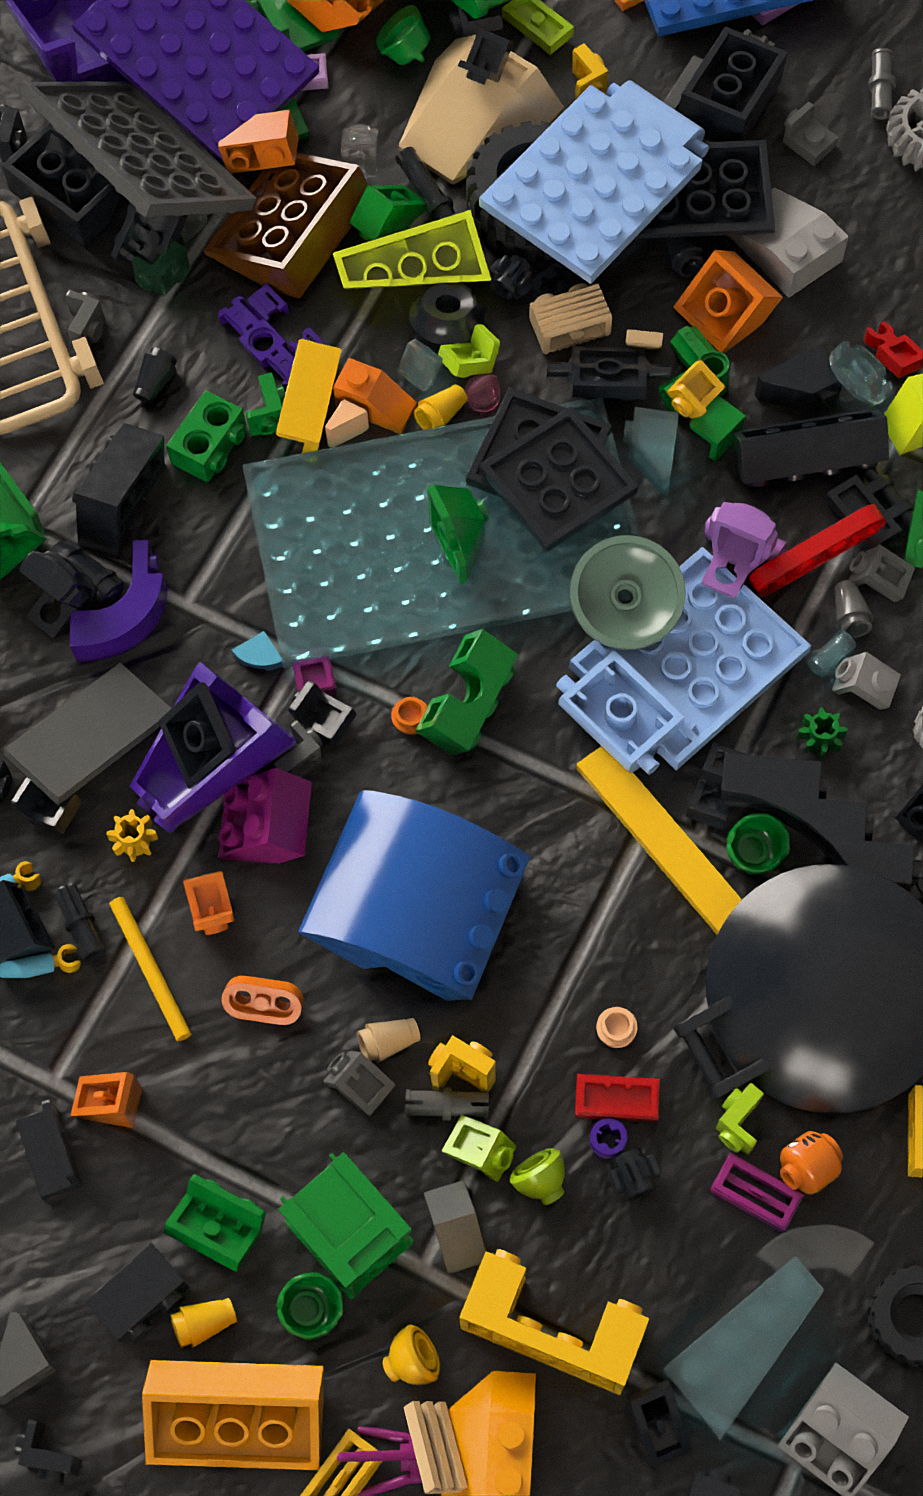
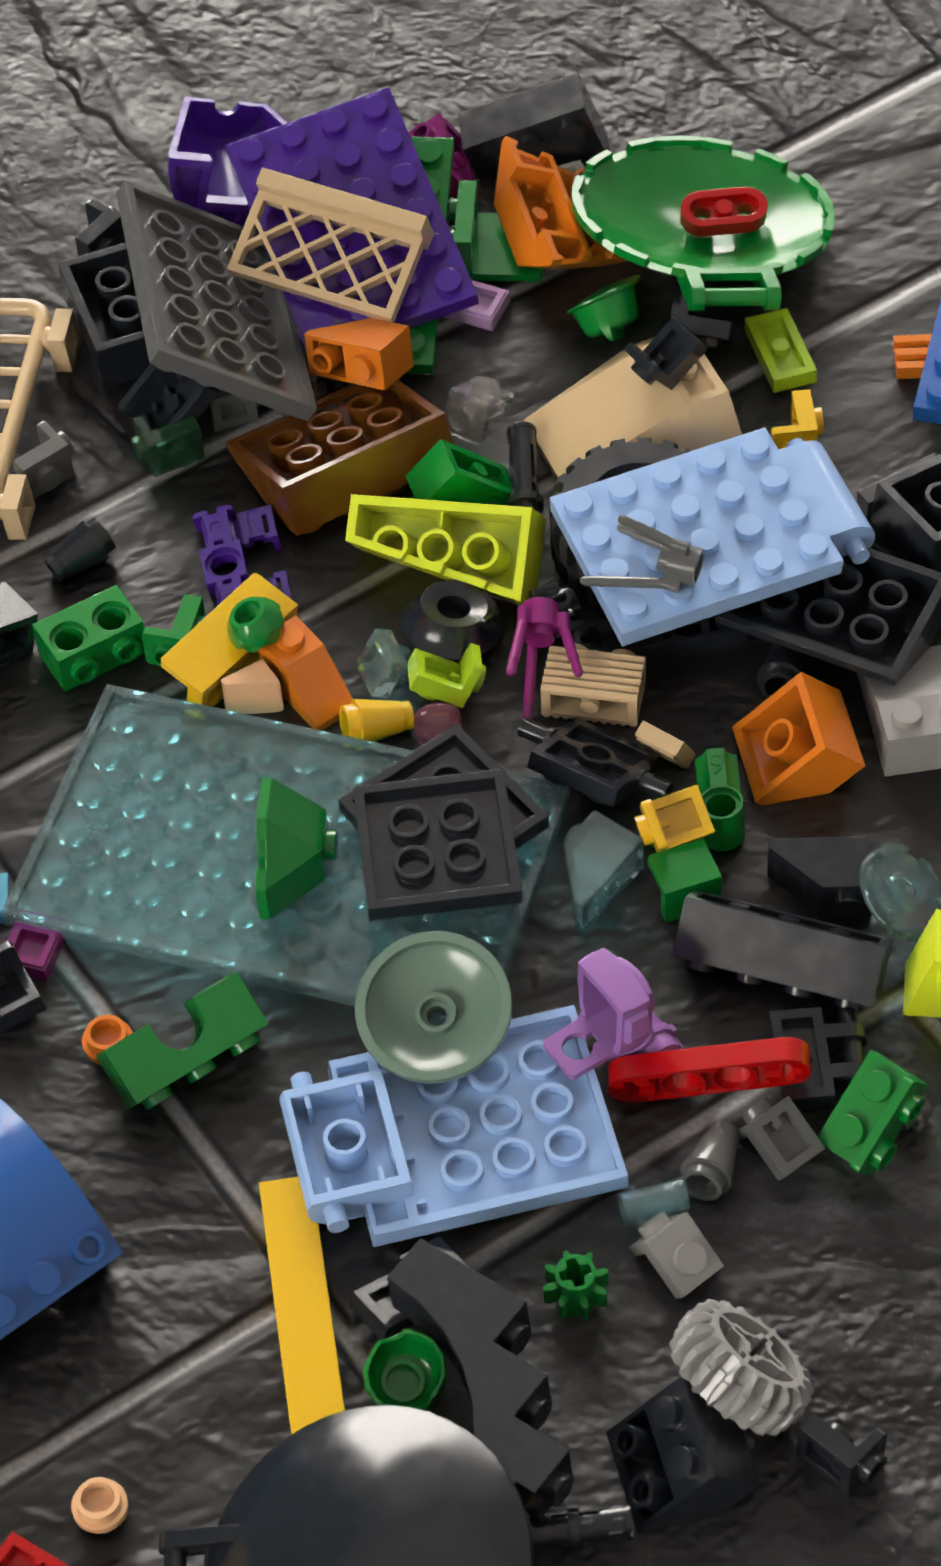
camera: 30 degrees right, 15 degrees down
(205, 42) = (342, 210): none -> tan fence
(336, 384) = (255, 623): none -> green plate
(519, 294) = (539, 625): none -> magenta plant
(603, 207) = (676, 560): none -> dark grey plant

